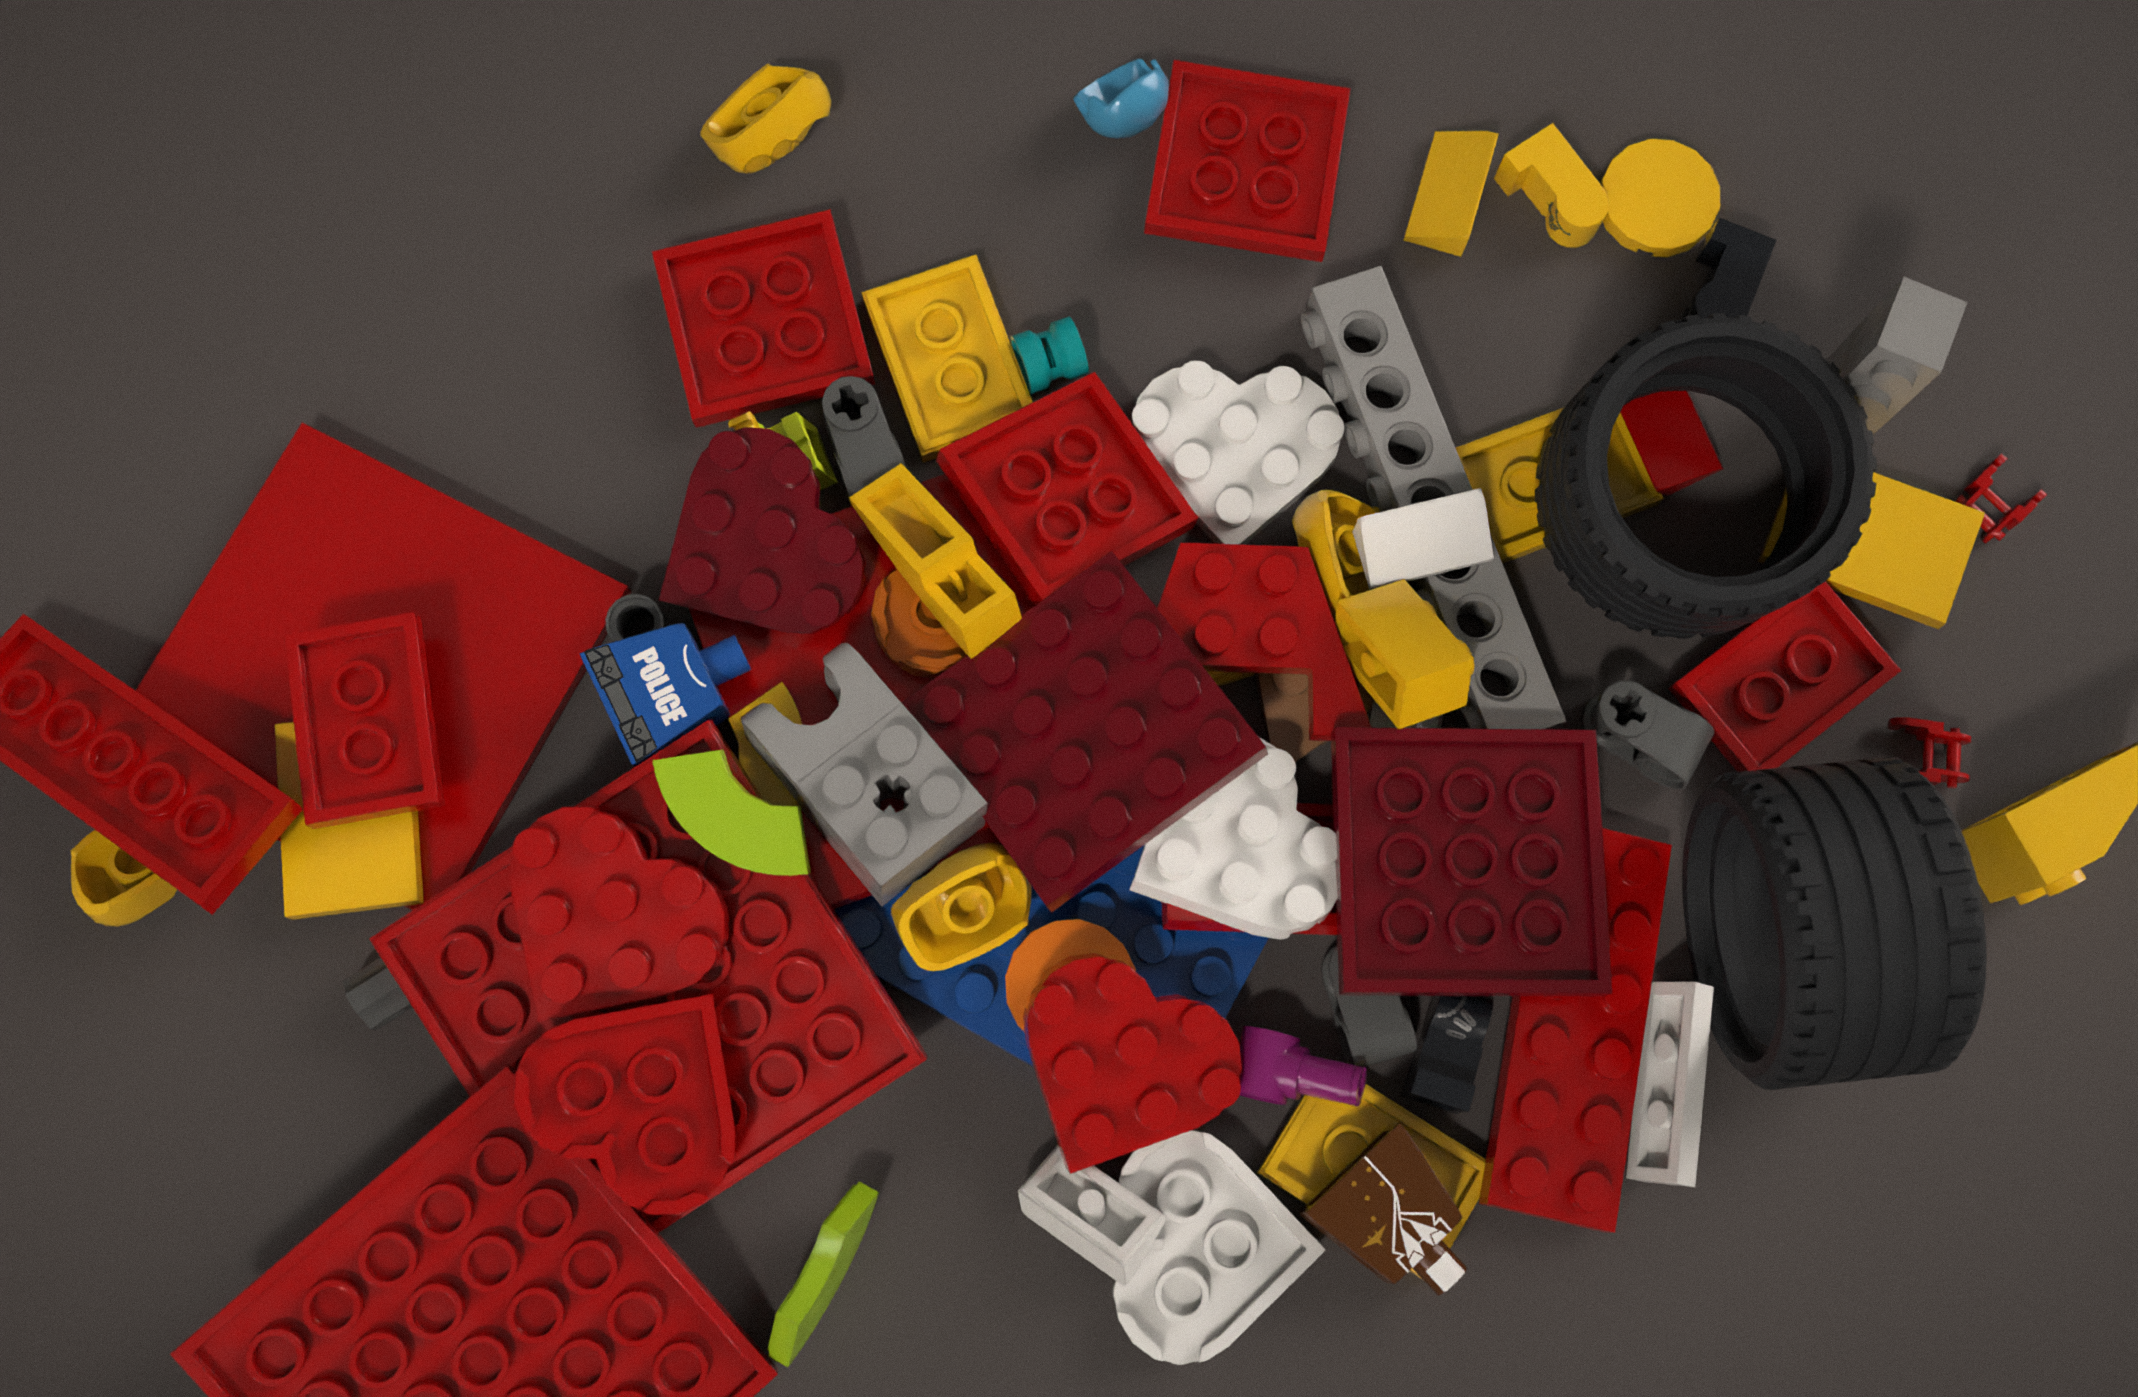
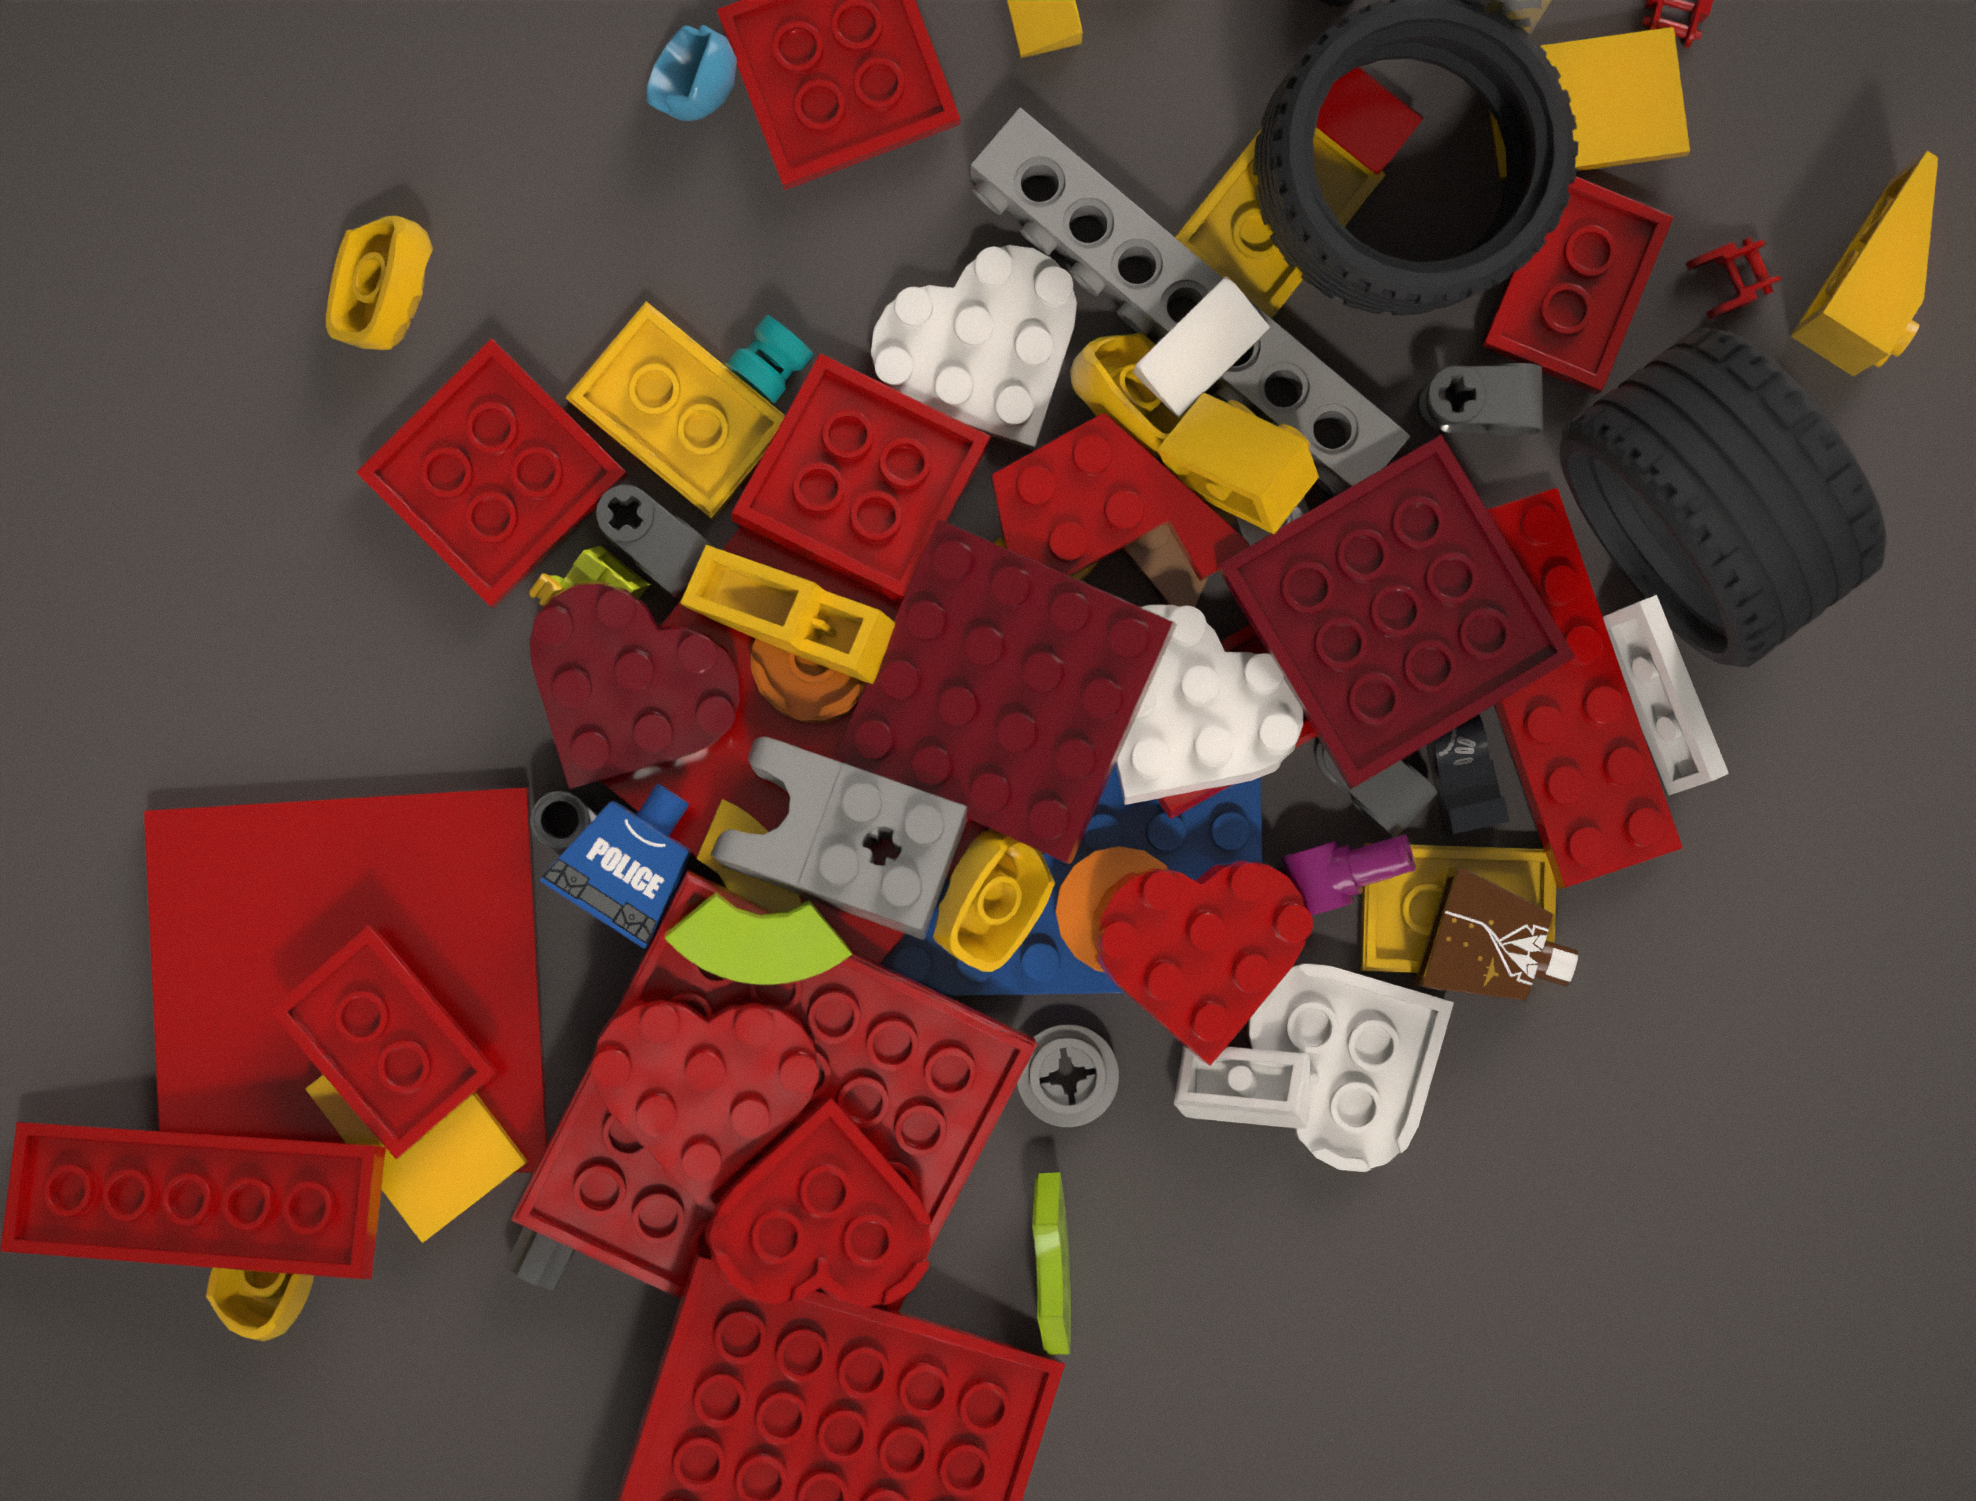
camera: 30 degrees left, 10 degrees up
(951, 1140) = (1093, 1093): none -> light grey gear

